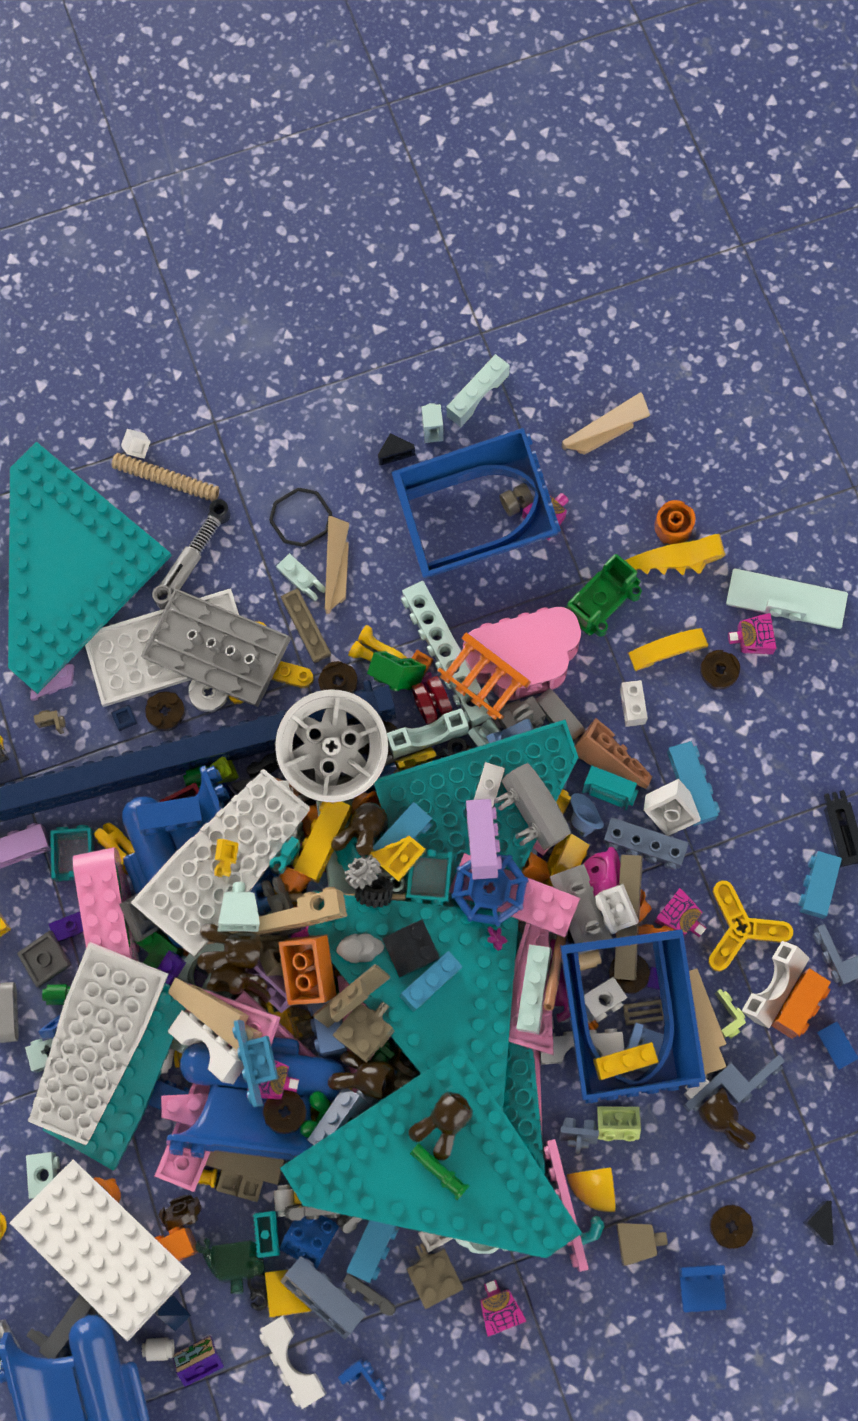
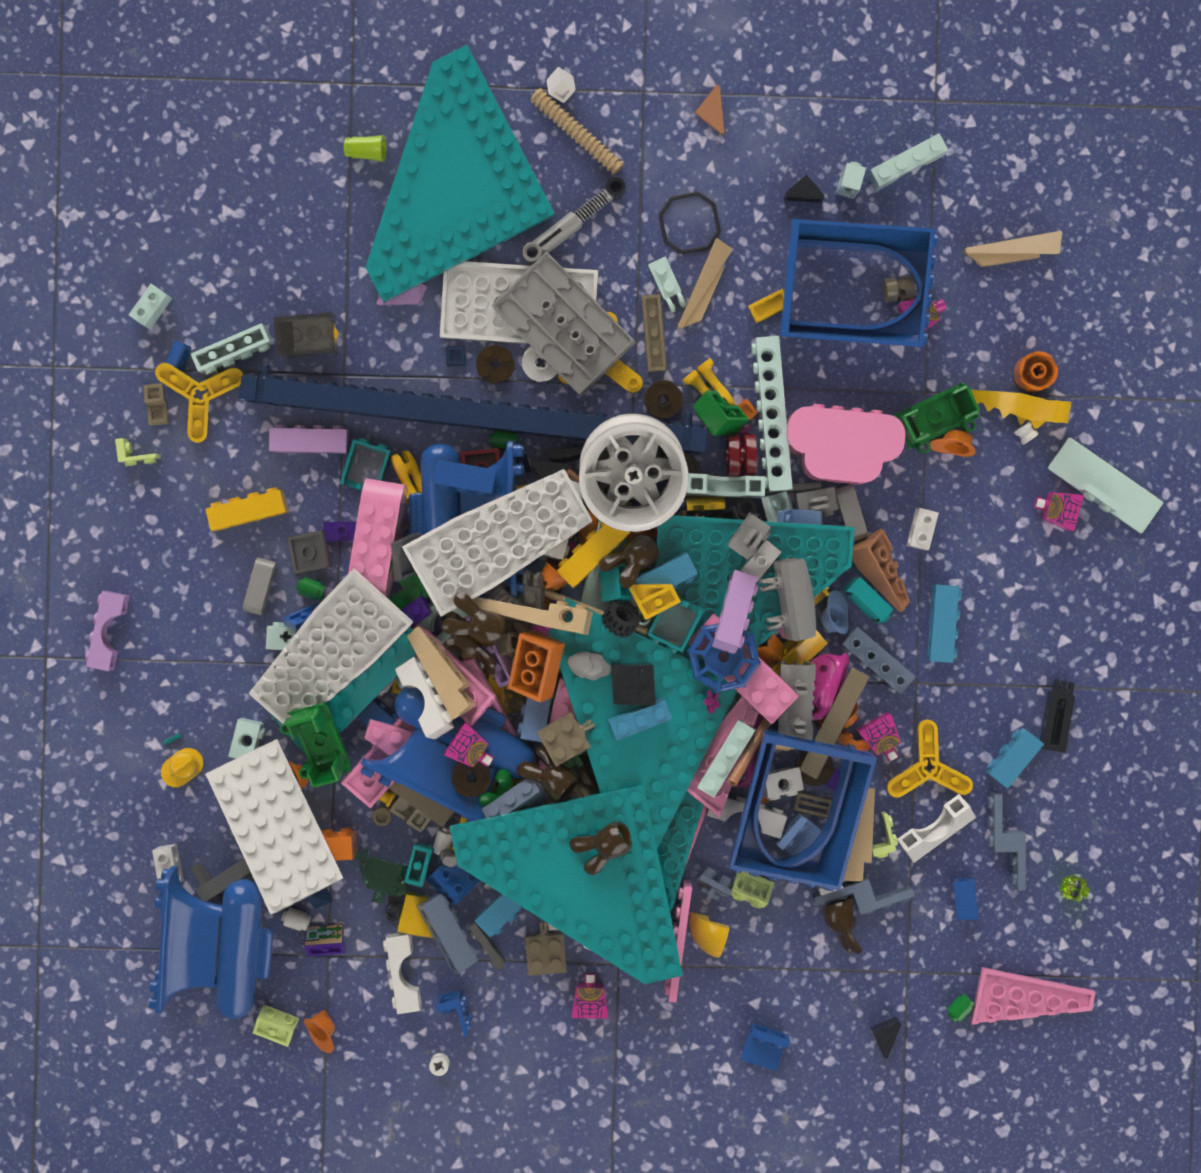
camera: 20 degrees right, 15 degrees up
(48, 718) = (384, 328): dark tan bracket -> none
(117, 1142) = (320, 742): none -> green container
(181, 1212) = (344, 821): dark brown plate -> none
(211, 1201) = (382, 816): none -> dark tan tile
(226, 770) = (530, 444): lime bracket -> none
(226, 855) = (502, 538): yellow plate -> none
(239, 911) = (495, 593): light aqua torso -> none
(257, 1062) = (463, 732): dark azure bracket -> none
(282, 415) = (711, 110): none -> nougat tile
(288, 853) = (559, 553): teal plate -> none
(351, 996) = (565, 707): dark tan bracket -> none
(362, 871) = (617, 601): light grey gear -> none
(402, 561) = (767, 306): none -> yellow plate
(447, 1178) = (588, 891): green pin -> none
(467, 765) = (749, 536): none -> light grey brick
(501, 669) = (807, 439): orange fence -> none
(595, 1231) = (695, 967): teal arm -> none
(616, 908) = (827, 715): white bracket -> none
(625, 1061) = (779, 845): yellow plate -> none
(629, 614) = (956, 443): none -> orange piece
(638, 1242) = (726, 991): dark tan torso -> none
(667, 647) = (975, 489): yellow slope -> none
(671, 807) = (914, 639): white slope -> none
(691, 579) = (1026, 433): none -> white wheel
(723, 659) = (1021, 519): dark brown plate -> none
(741, 1219) = (808, 997): dark brown plate -> none
(801, 1004) = (951, 855): orange brick -> none

